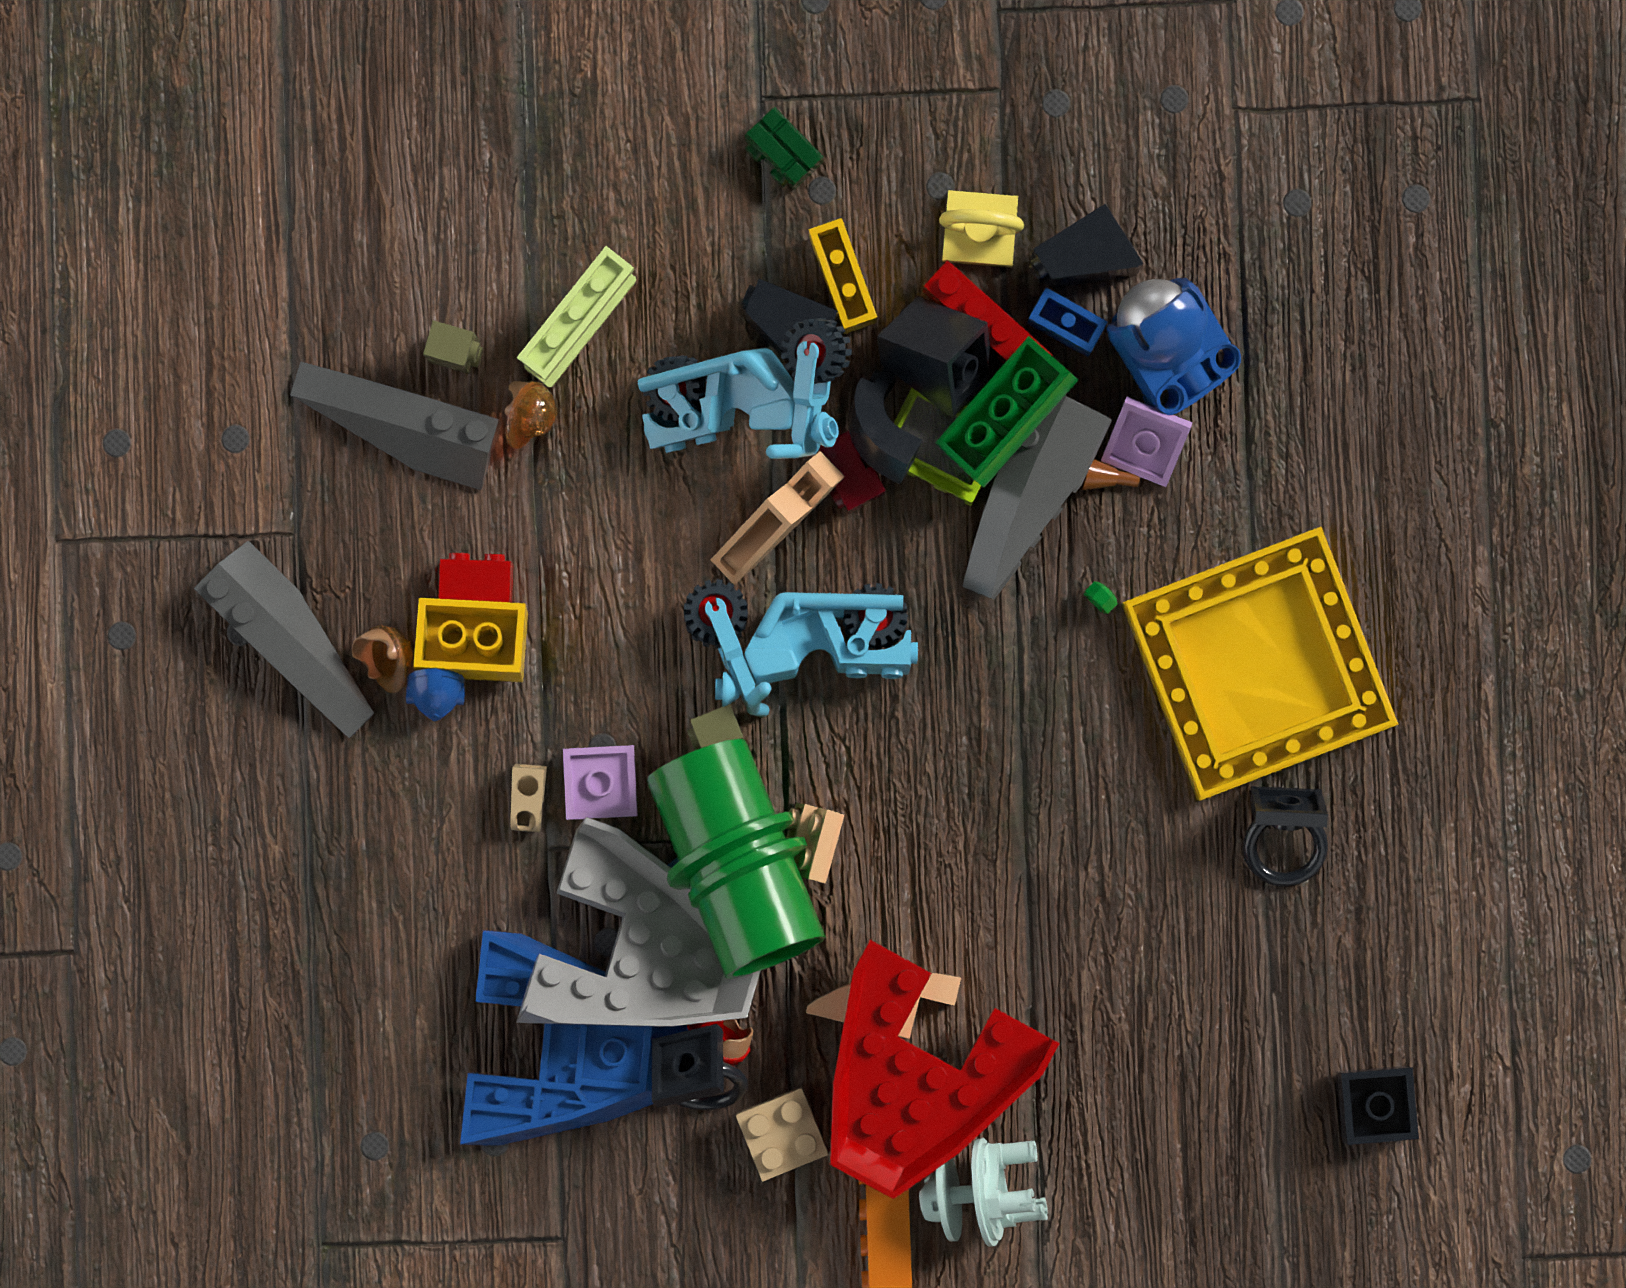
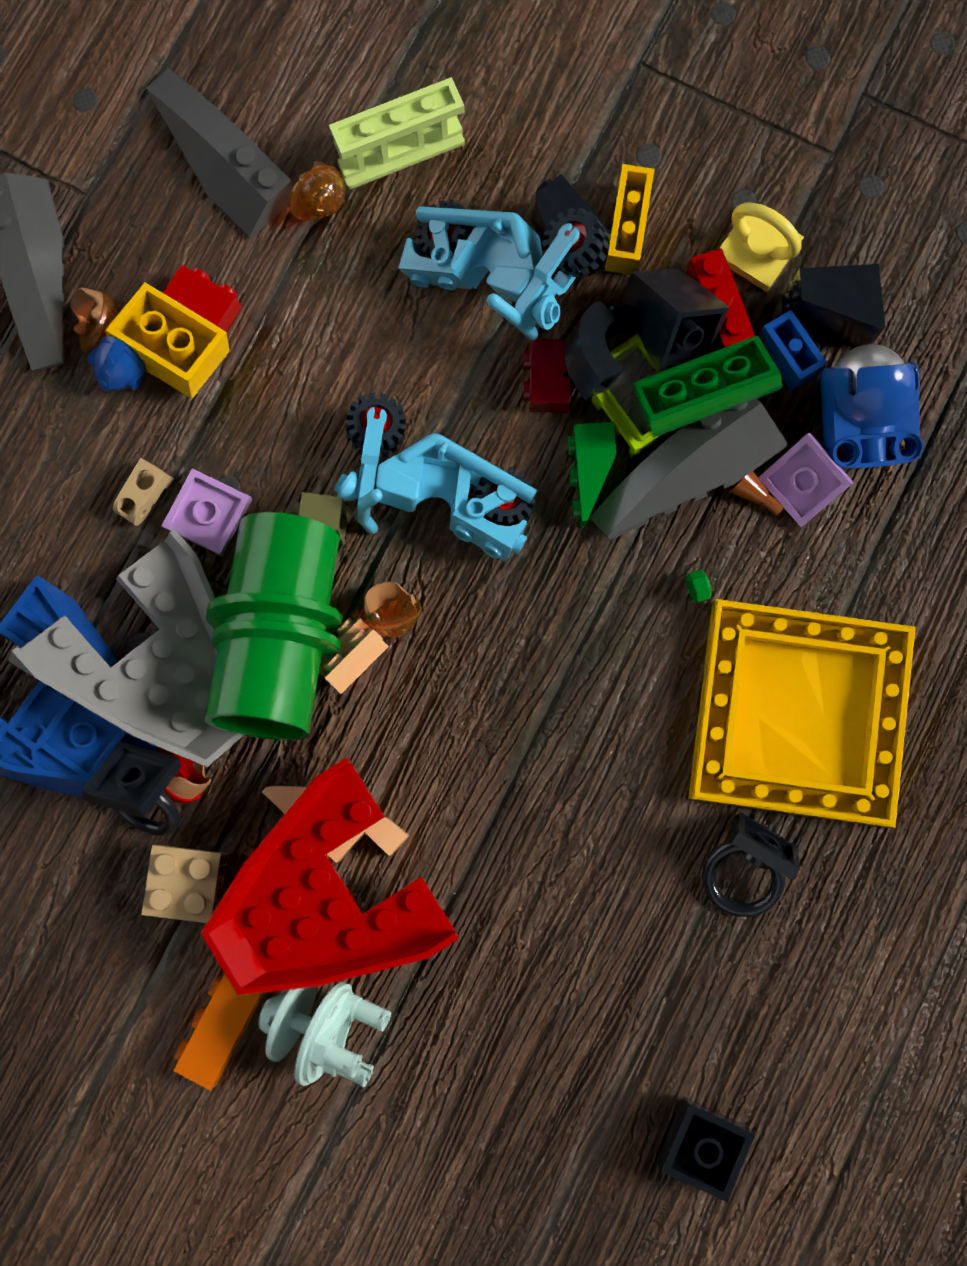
camera: 25 degrees right, 5 degrees down
(453, 347) = (287, 108): olive brick -> none
(777, 517) = (470, 377): light nougat slope -> none
(782, 149) = (636, 103): dark green brick -> none
(827, 779) = (390, 609): none -> piece
(937, 531) = (593, 457): none -> green slope

